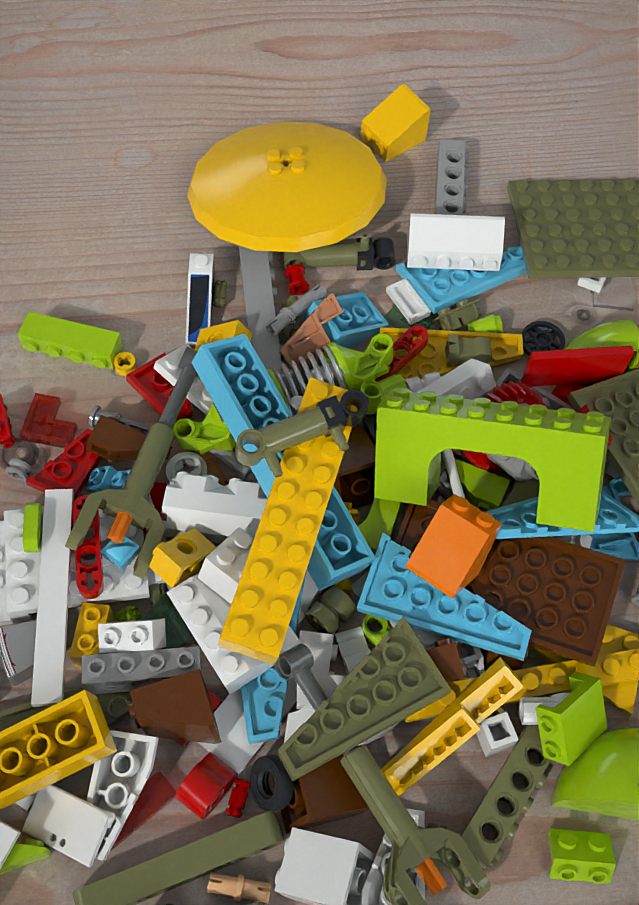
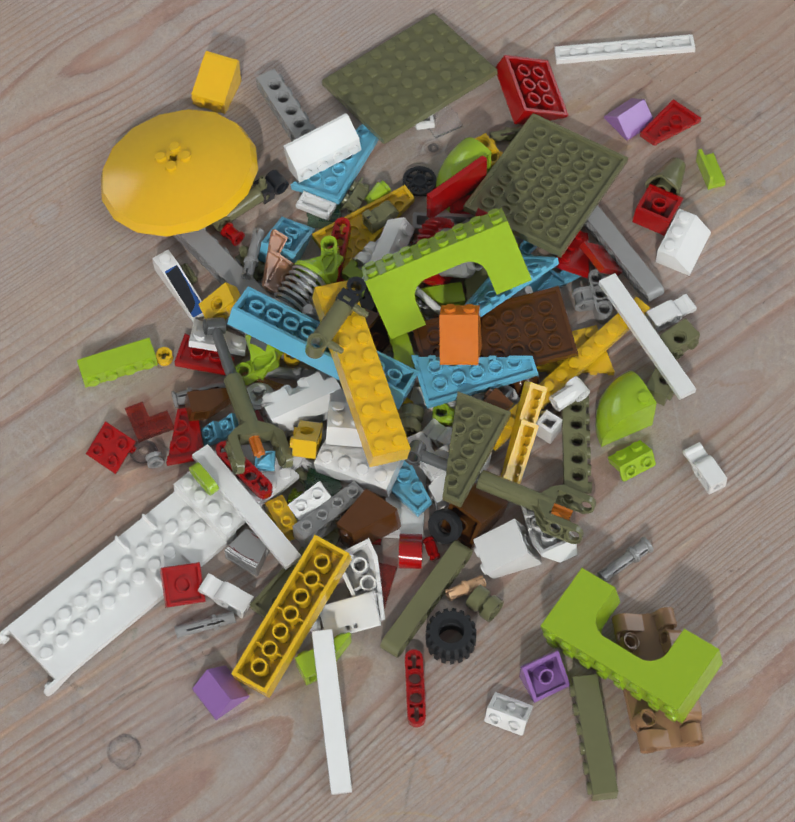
camera: 30 degrees left, 0 degrees up
(378, 391) = (350, 269): lime piece -> none
(574, 722) = (585, 392): lime panel -> none

